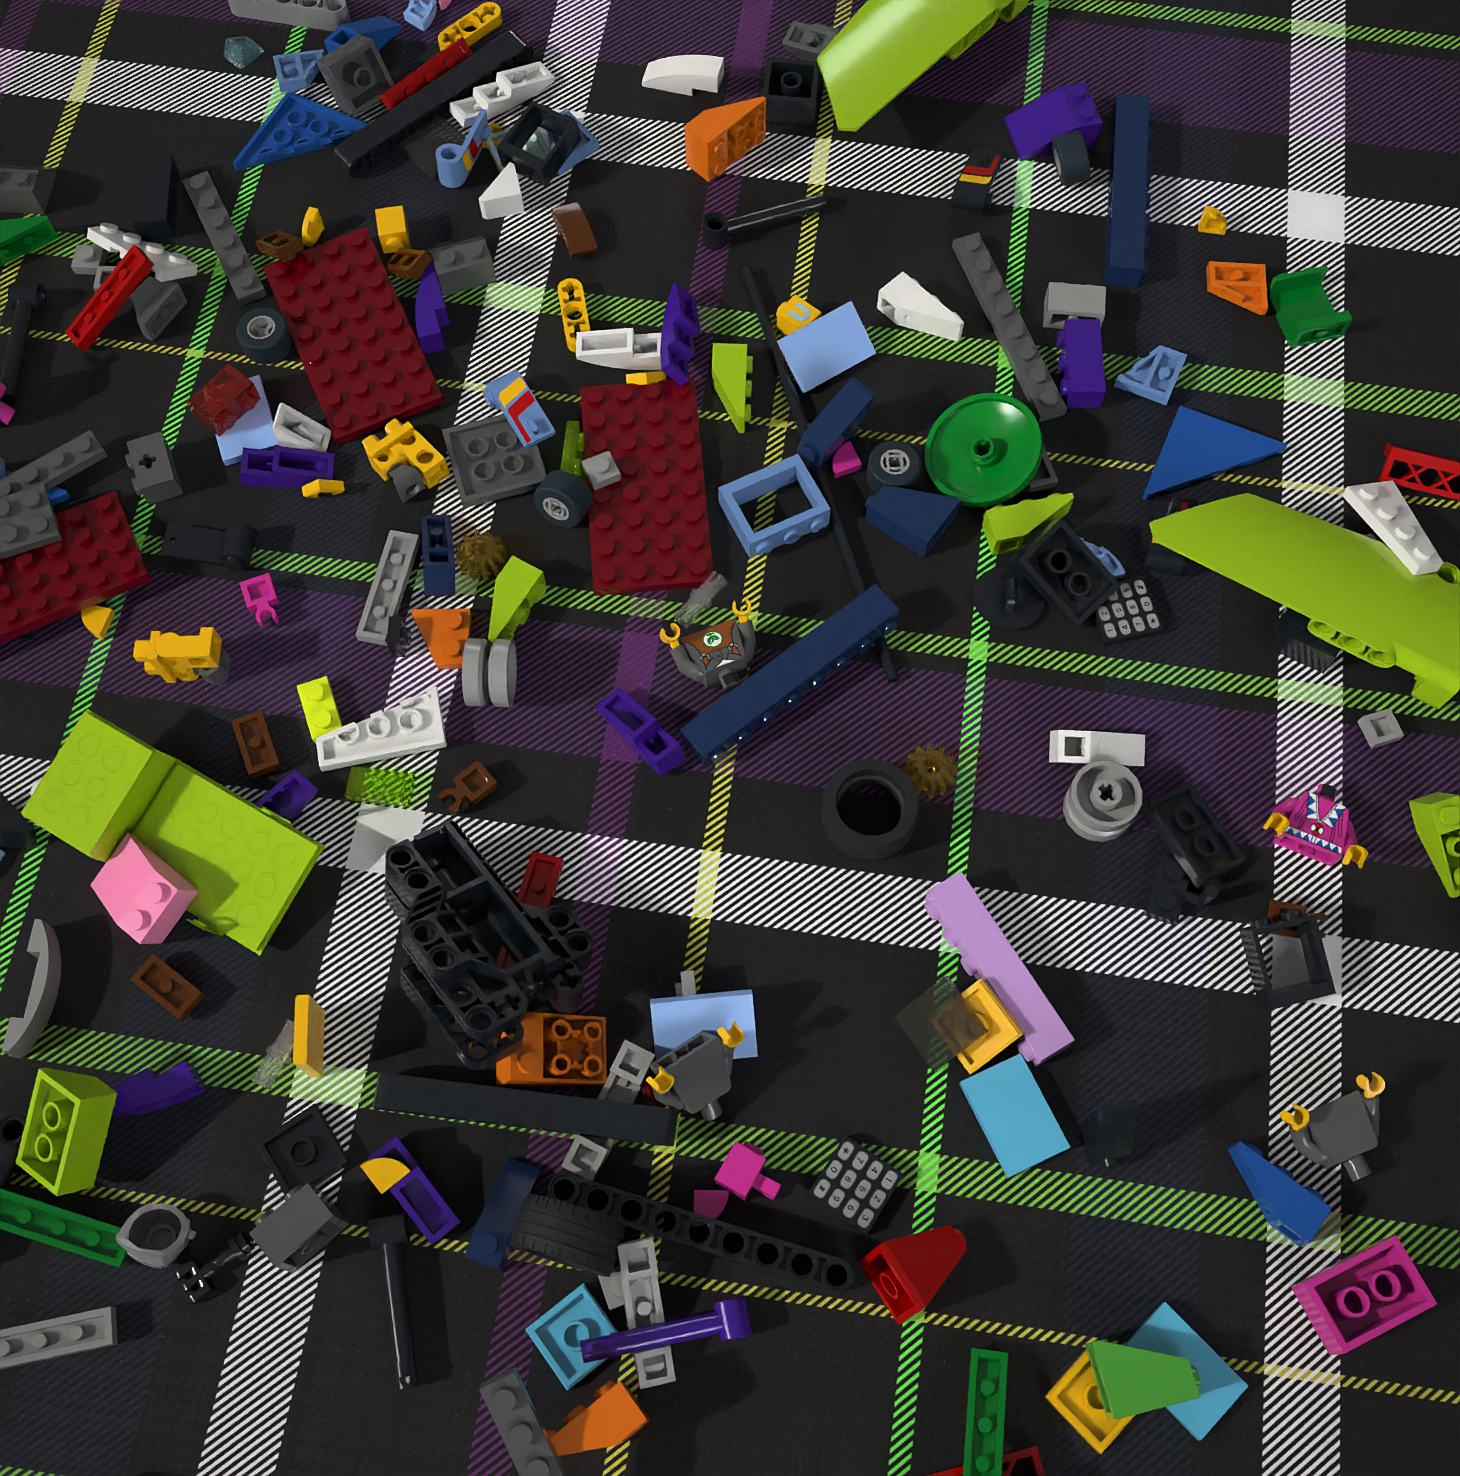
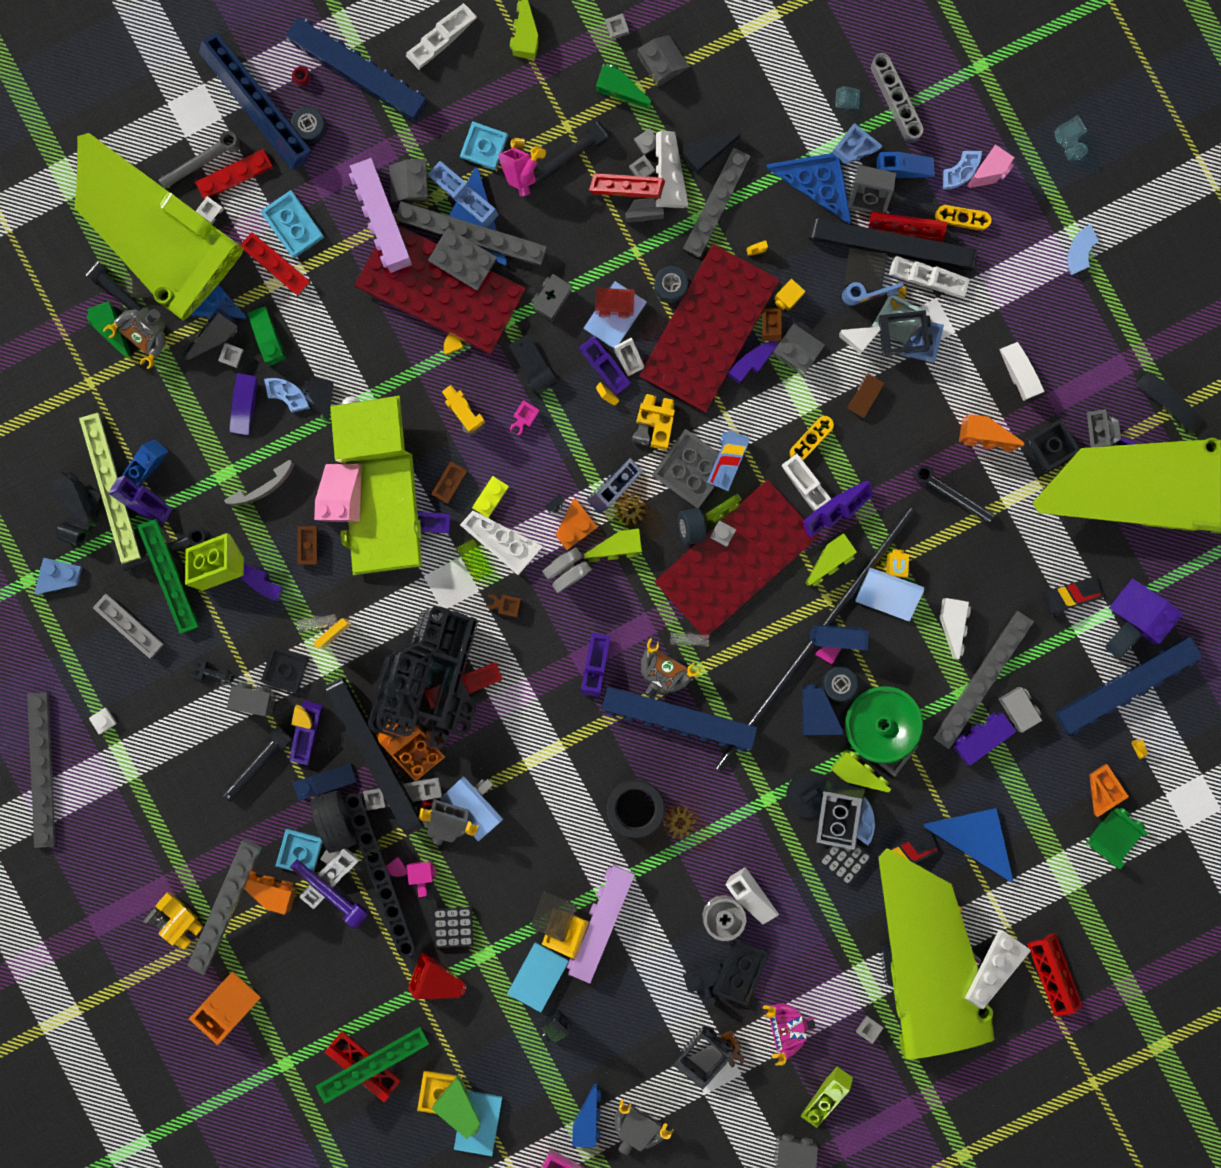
camera: 50 degrees right, 20 degrees up
(155, 1234) = (203, 640): light grey helmet -> none
(280, 245) = (731, 243): reddish brown plate -> none
(388, 586) = (578, 476): light grey plate -> none
(646, 377) = (799, 509): yellow tile -> none
(766, 481) = (761, 656): medium blue window -> none
(1153, 375) = (1006, 782): medium blue wing -> none

